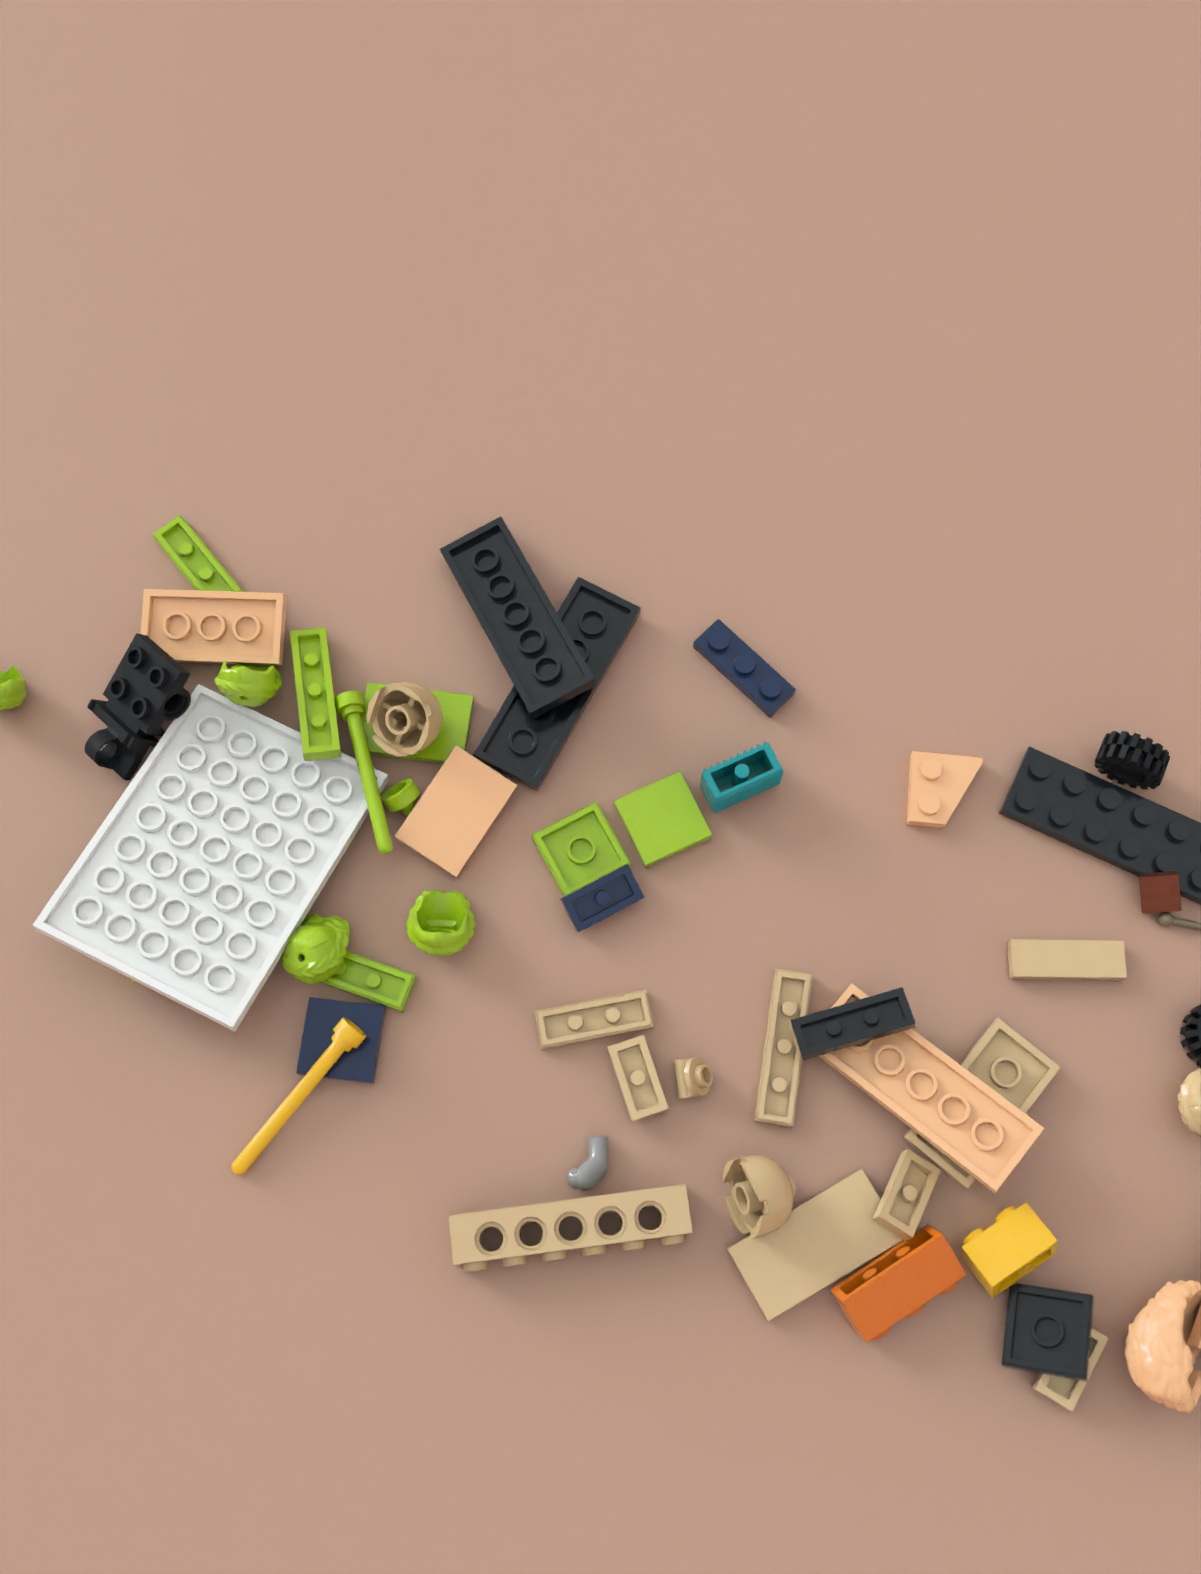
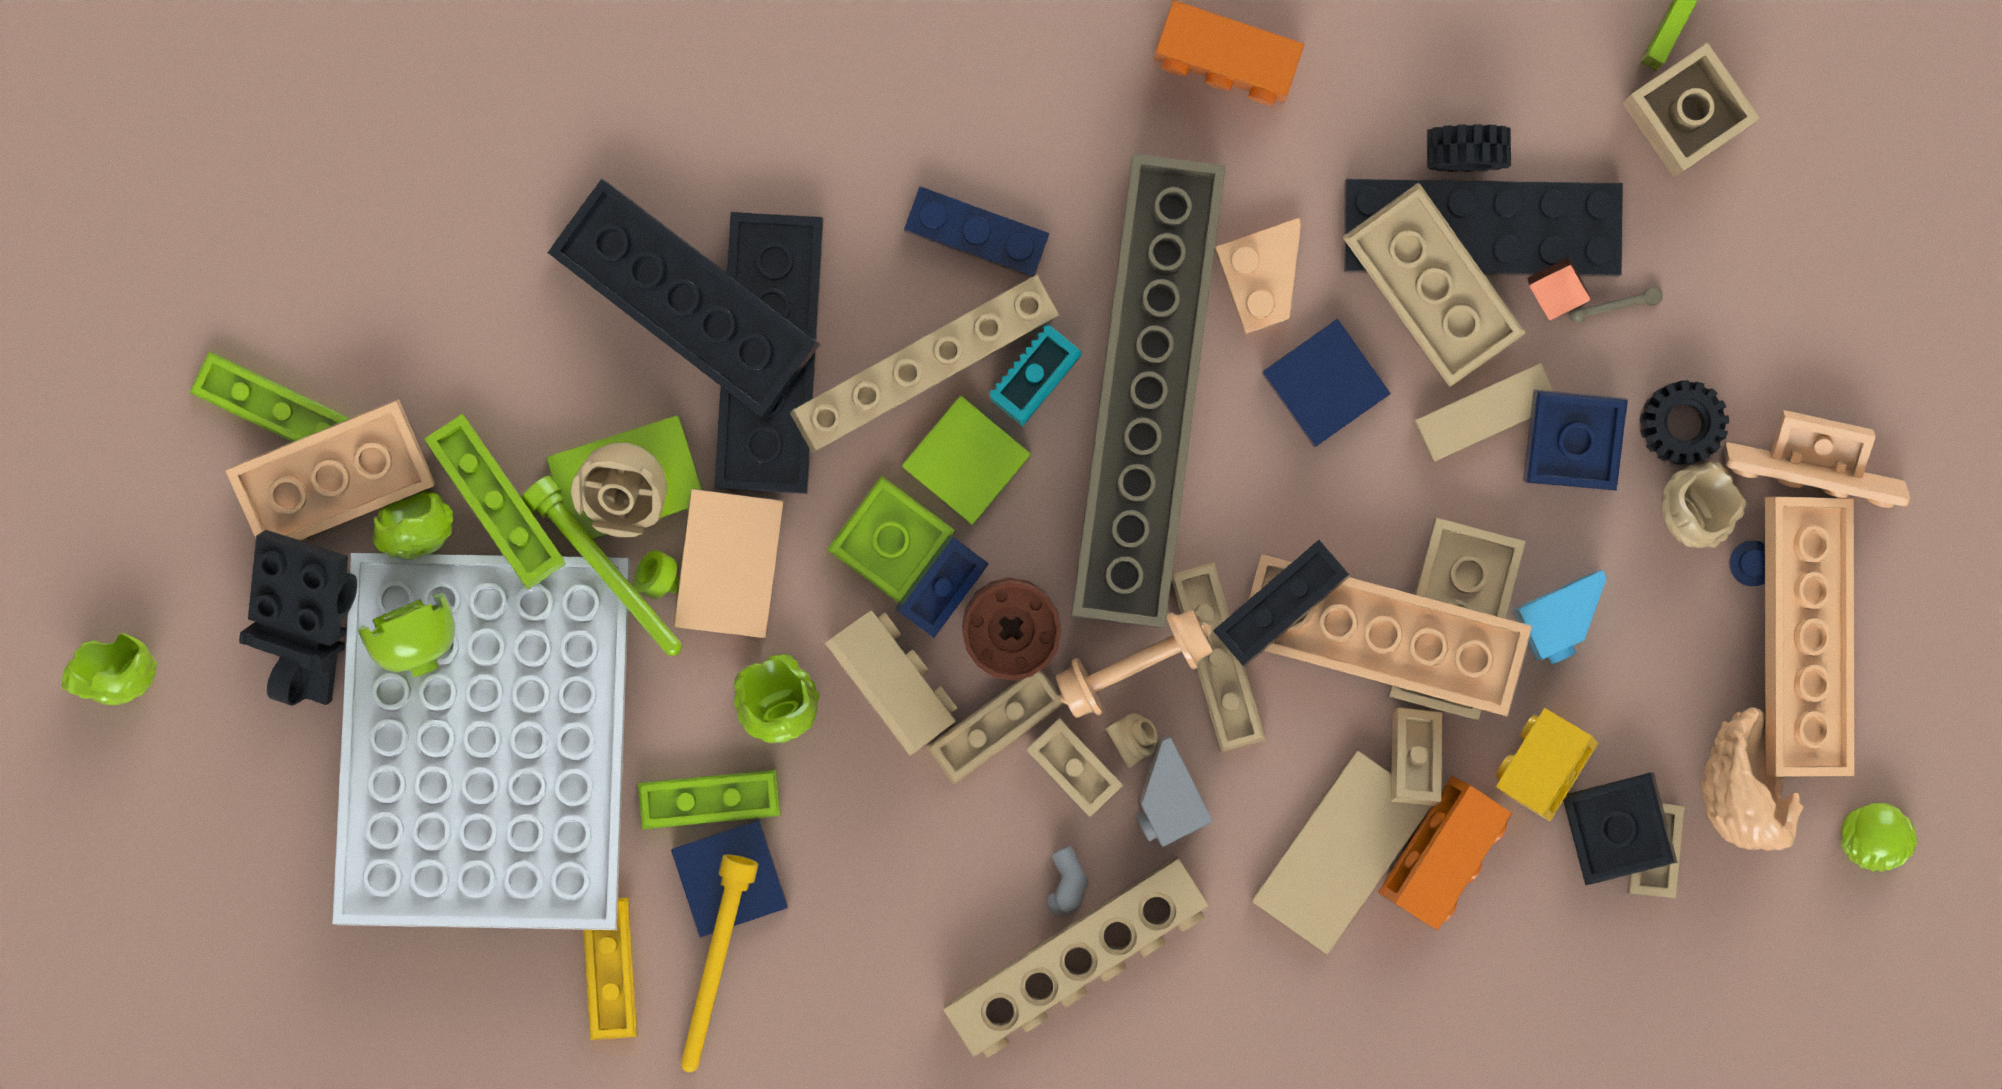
camera: 30 degrees left, 15 degrees up
(203, 749) = (411, 636): none -> lime cylinder
(217, 1071) = (611, 979): none -> yellow tile
(323, 945) = (656, 786): lime hair -> none
(532, 947) = (892, 680): none -> tan slope
(650, 929) = (1011, 656): none -> copper wheel
(663, 733) = (924, 363): none -> tan brick
(669, 1019) = (1081, 689): none -> light nougat piece
(700, 1132) = (1170, 798): none -> light grey slope
(760, 1194) = (1262, 831): tan cylinder -> none
(816, 829) = (1148, 391): none -> dark tan brick
(953, 883) = (1326, 383): none -> dark blue tile
(979, 624) = (1228, 53): none -> orange brick
(1066, 846) = (1434, 284): none -> tan tile
(1067, 1139) = (1562, 617): none -> medium azure slope
(1129, 1009) = (1575, 440): none -> dark blue tile

